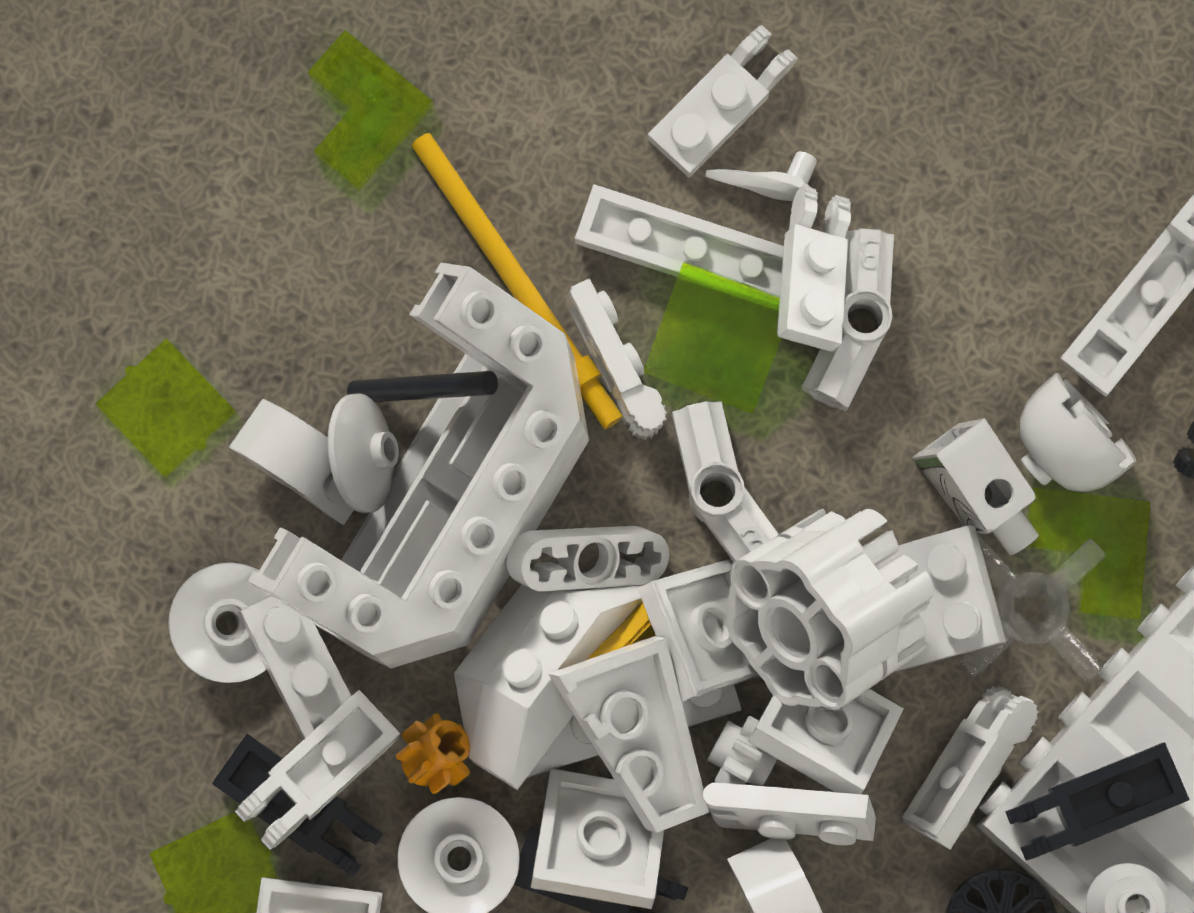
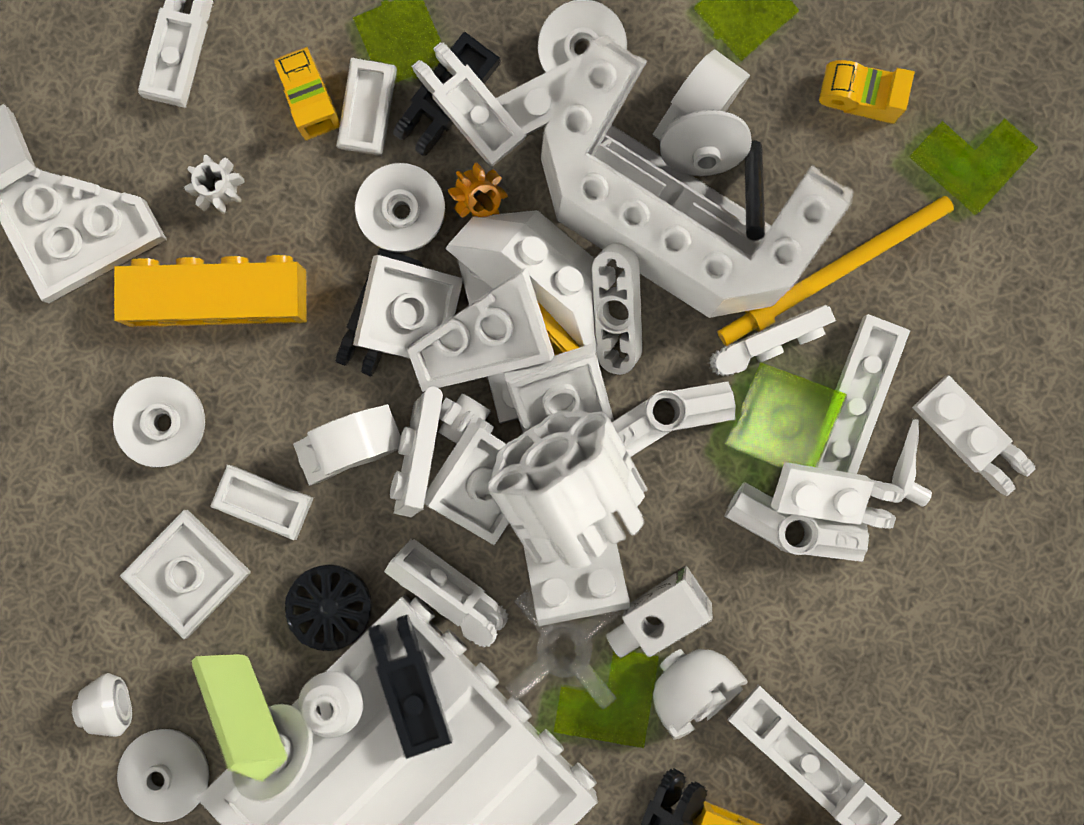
camera: 95 degrees right, 5 degrees up
(277, 248) = (866, 90): none -> yellow leg

